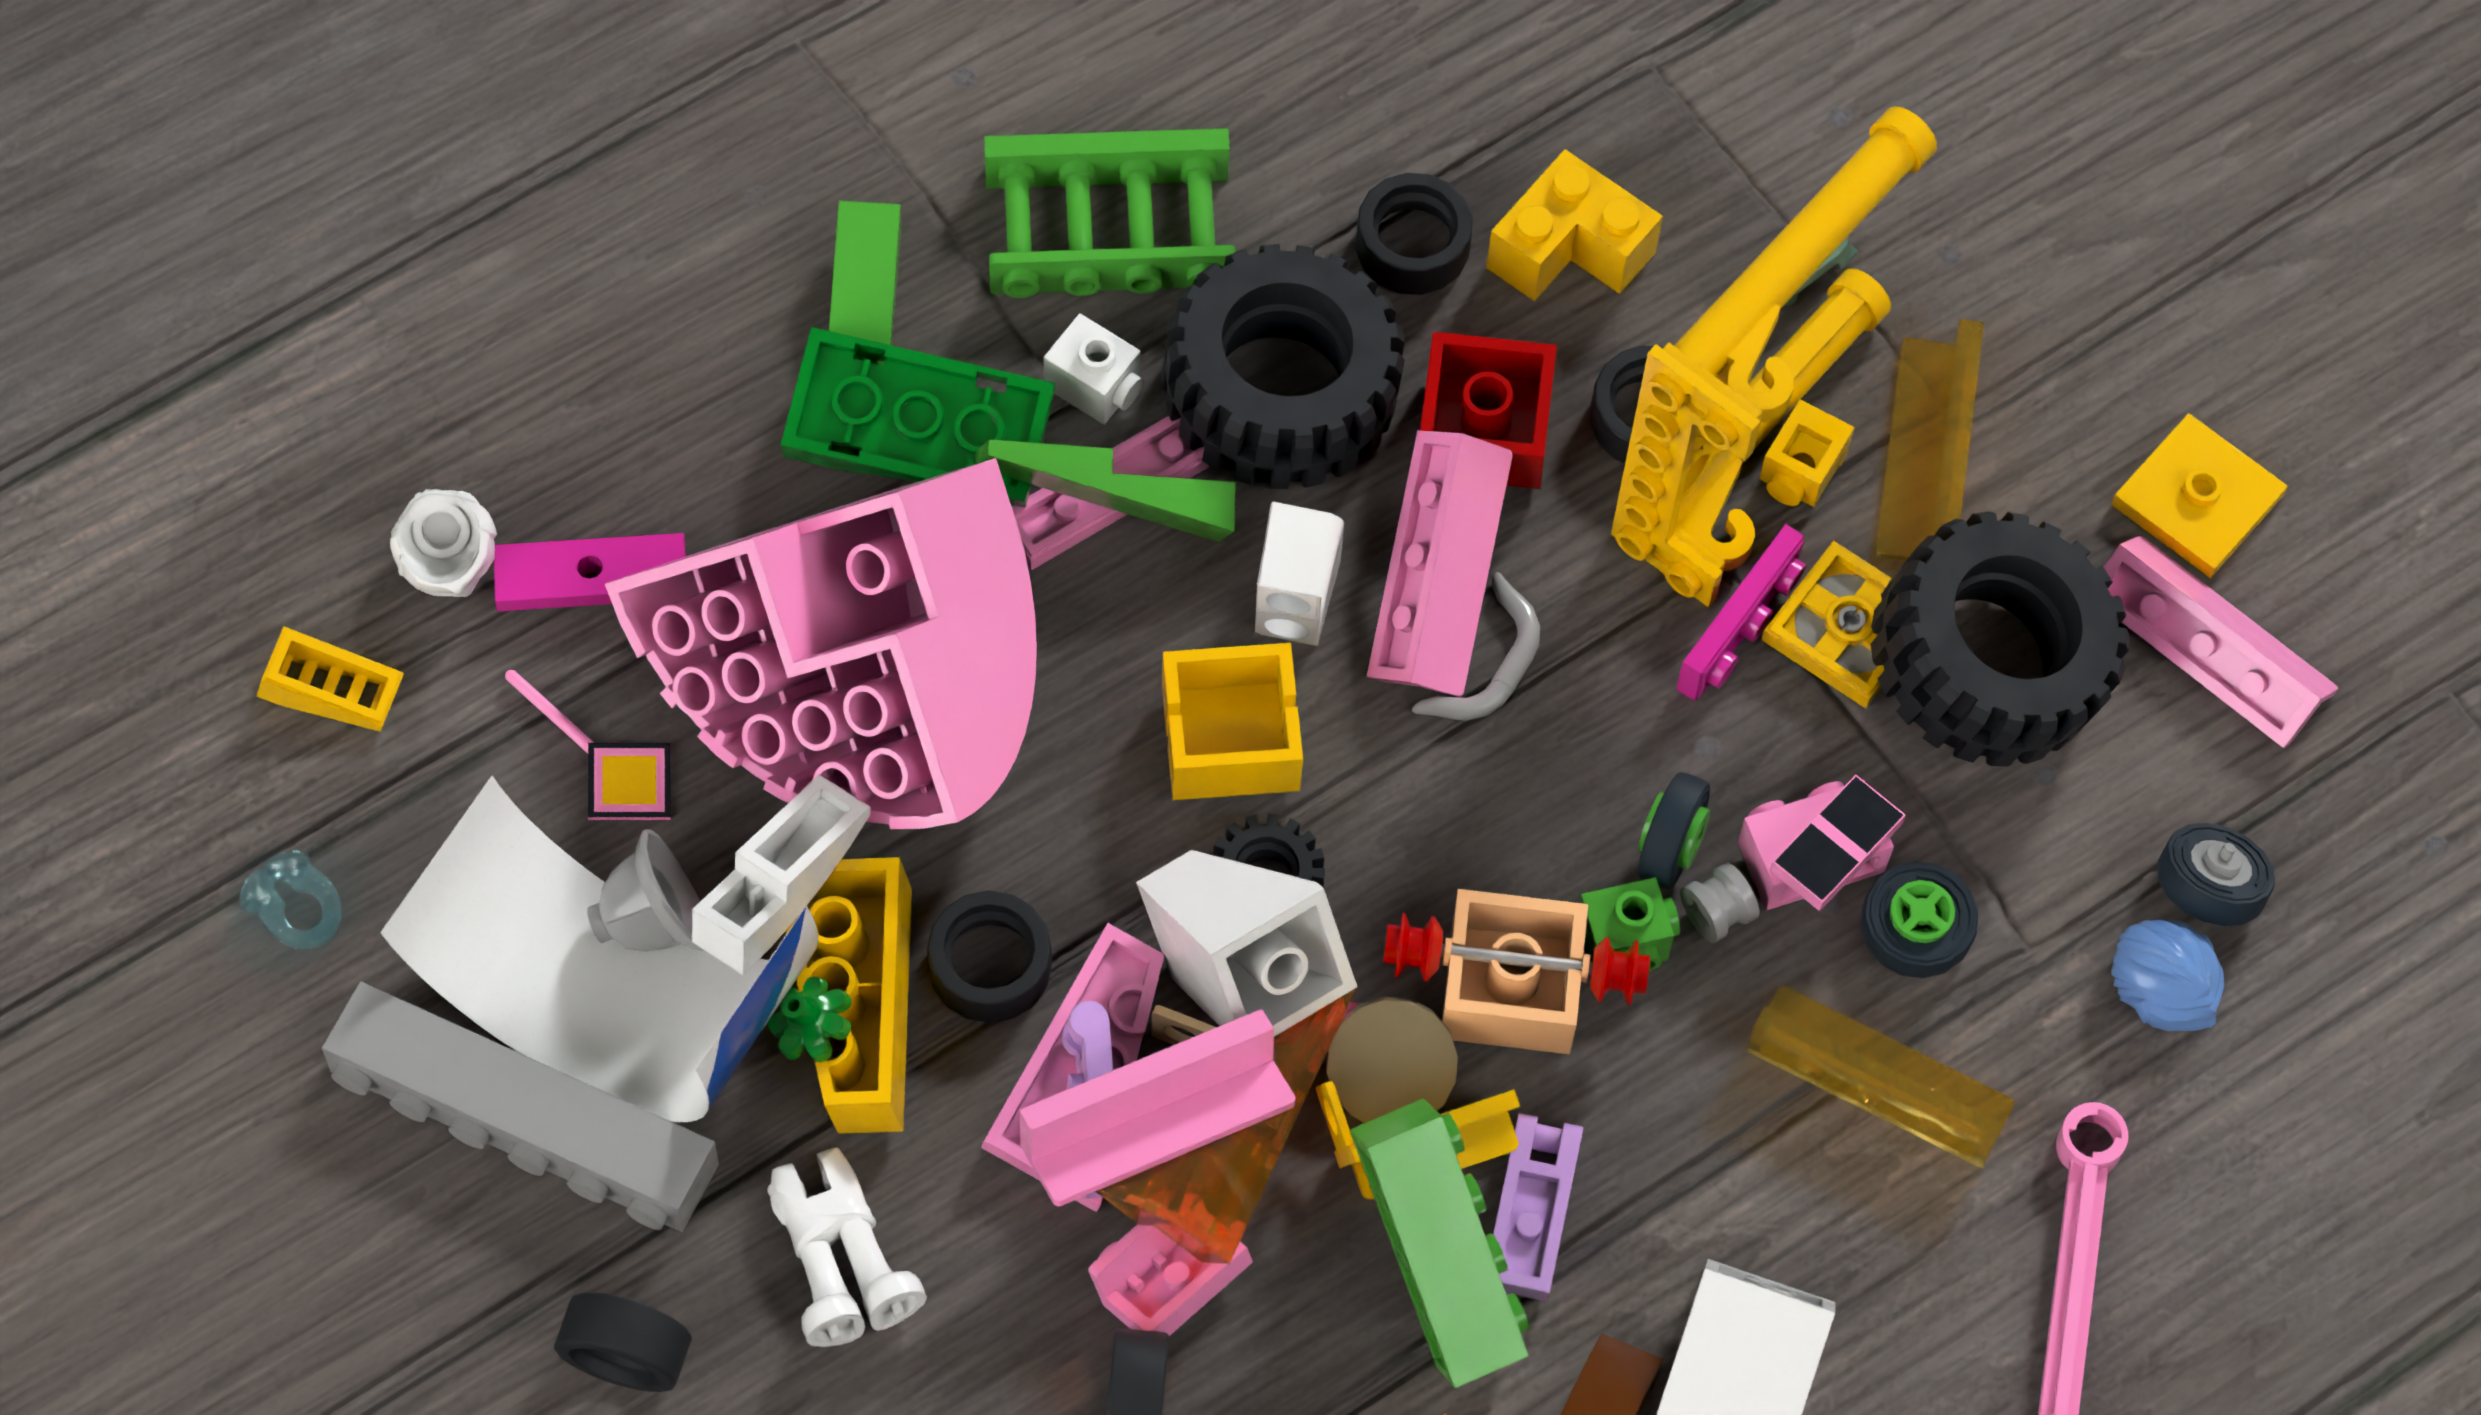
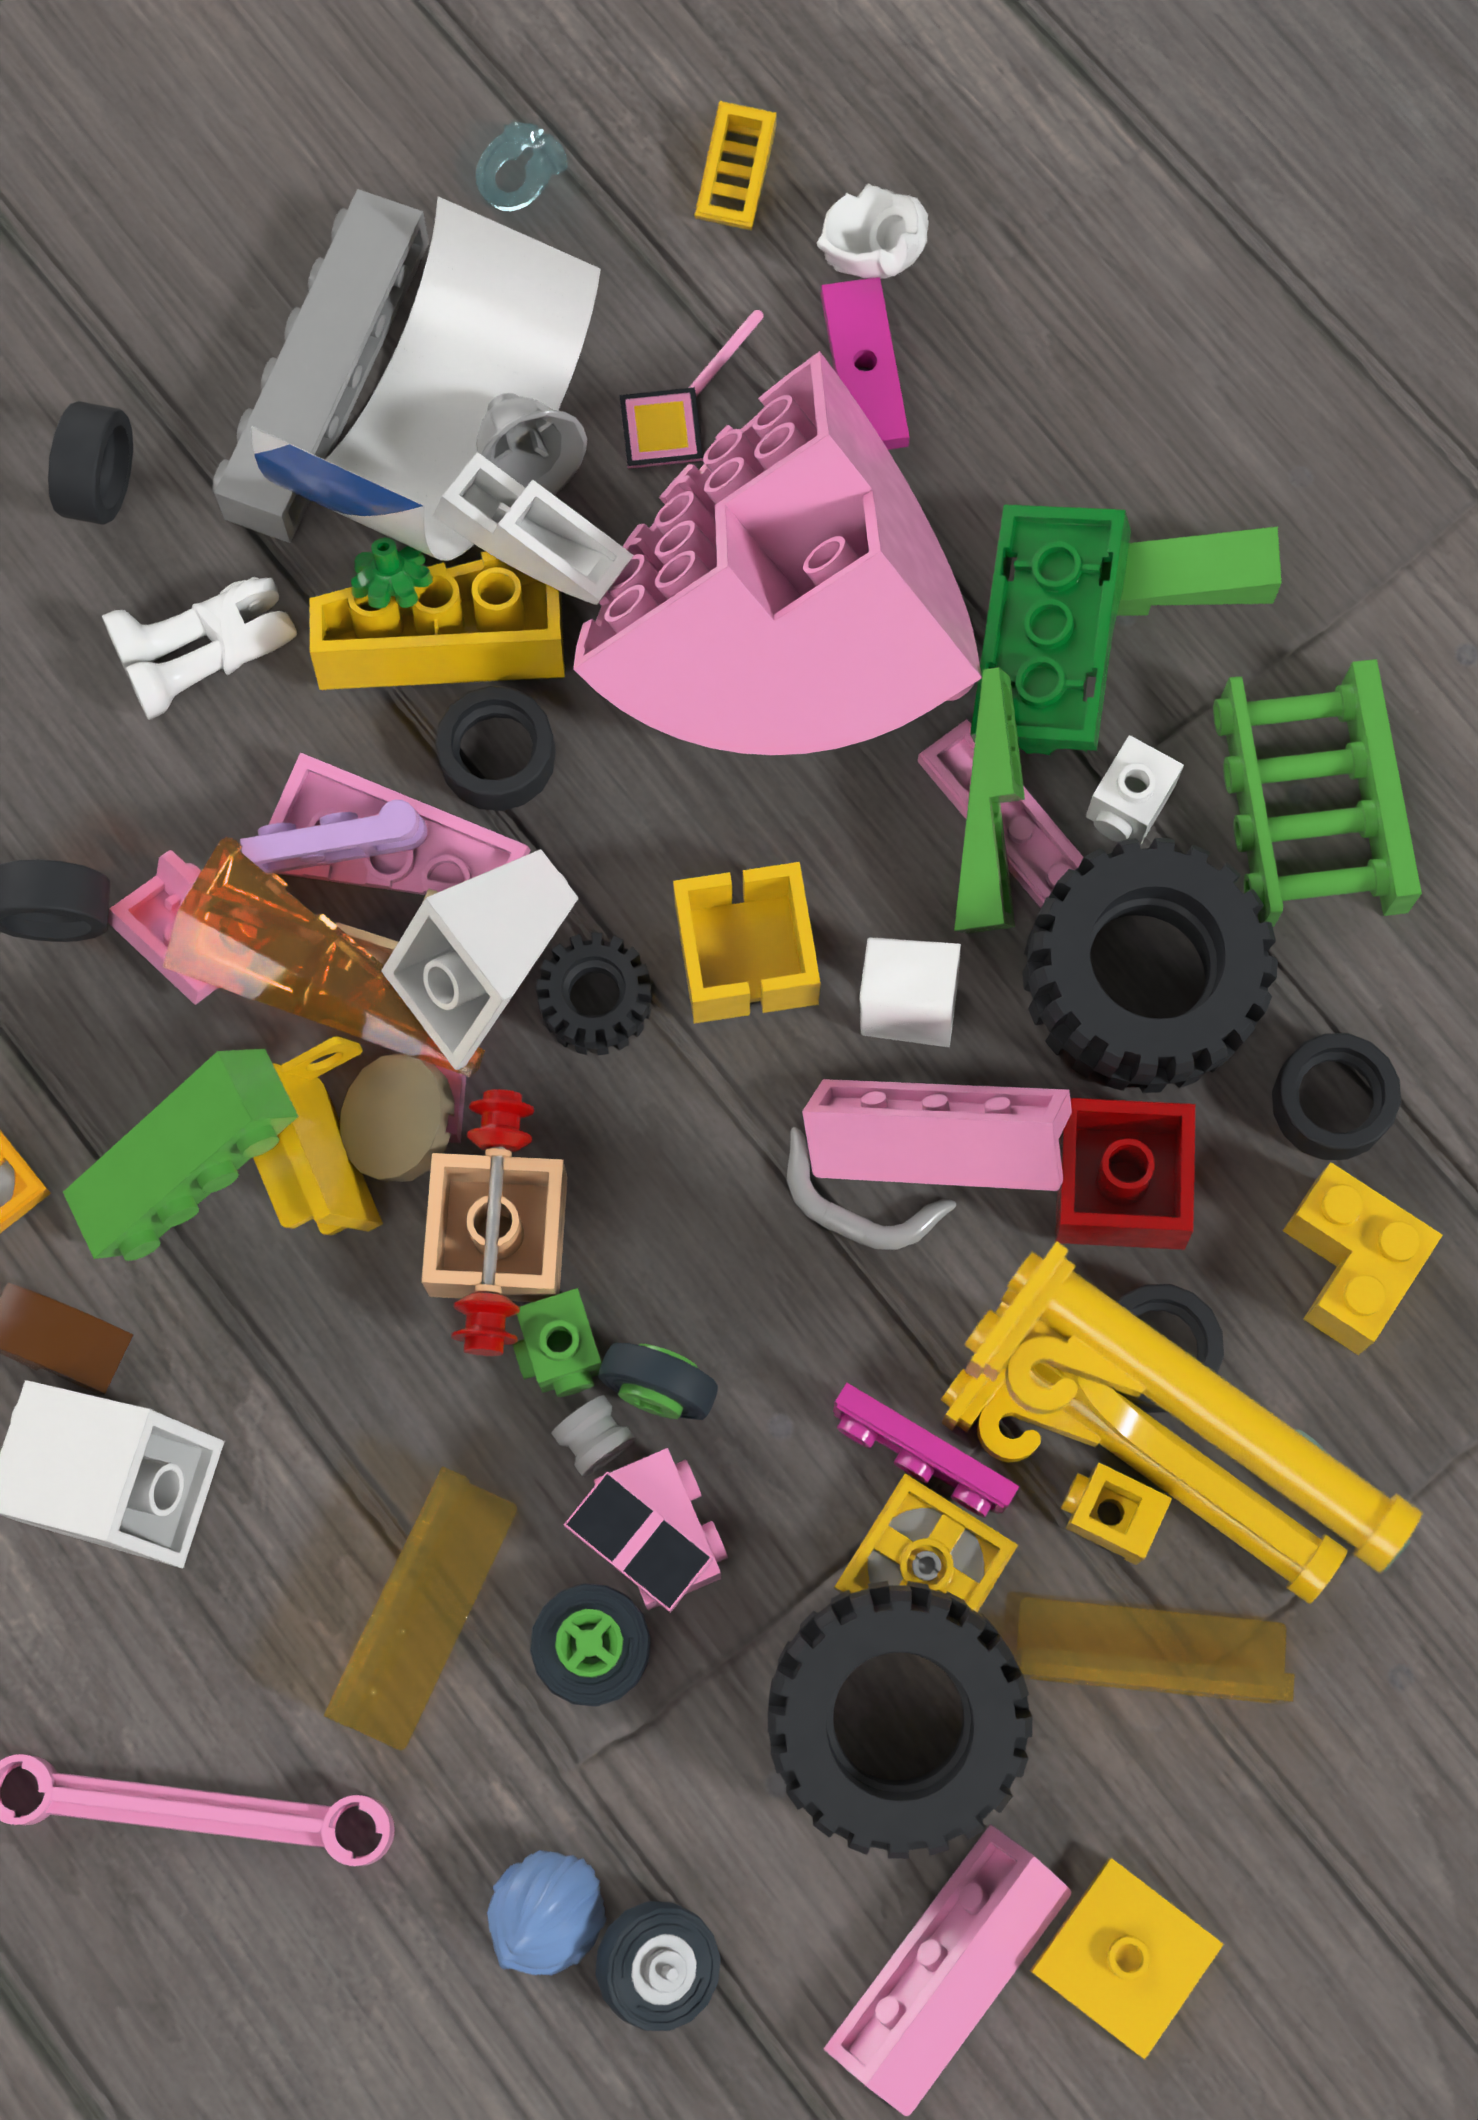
camera: 90 degrees right, 10 degrees up
(1155, 1109) = (298, 883): bright pink panel -> none
(1535, 1205) = (262, 1264): lavender plate -> none

